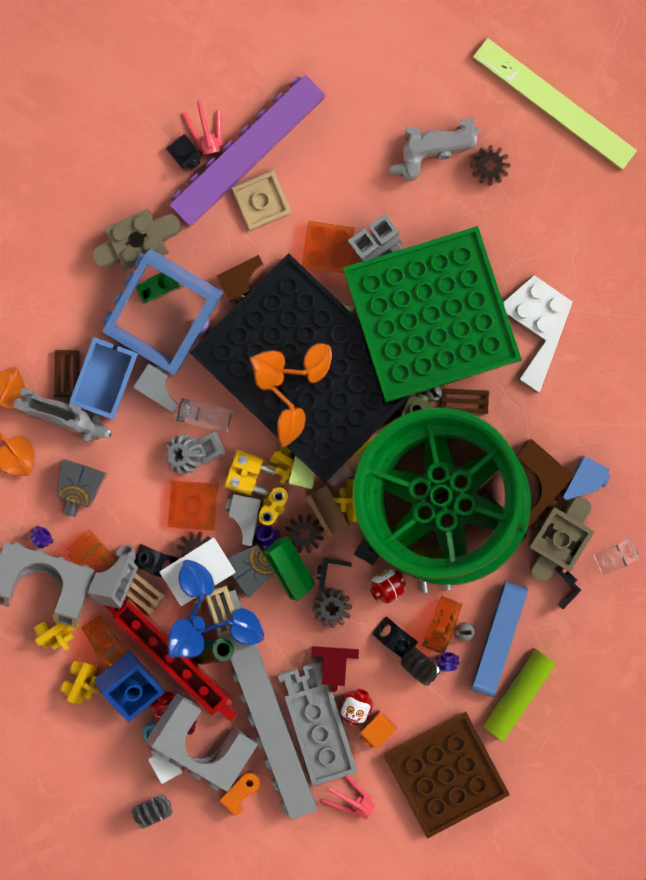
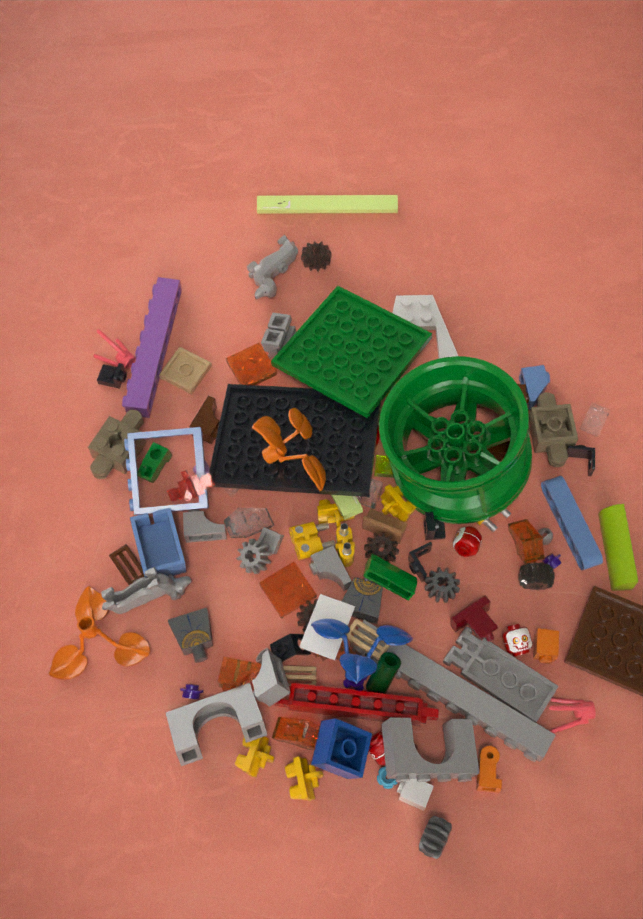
camera: 35 degrees left, 25 degrees down
(169, 348) = (190, 487): none -> clear red piece
(264, 531) = (356, 569): dark purple plate -> none
(397, 639) = (504, 572): black bracket -> none

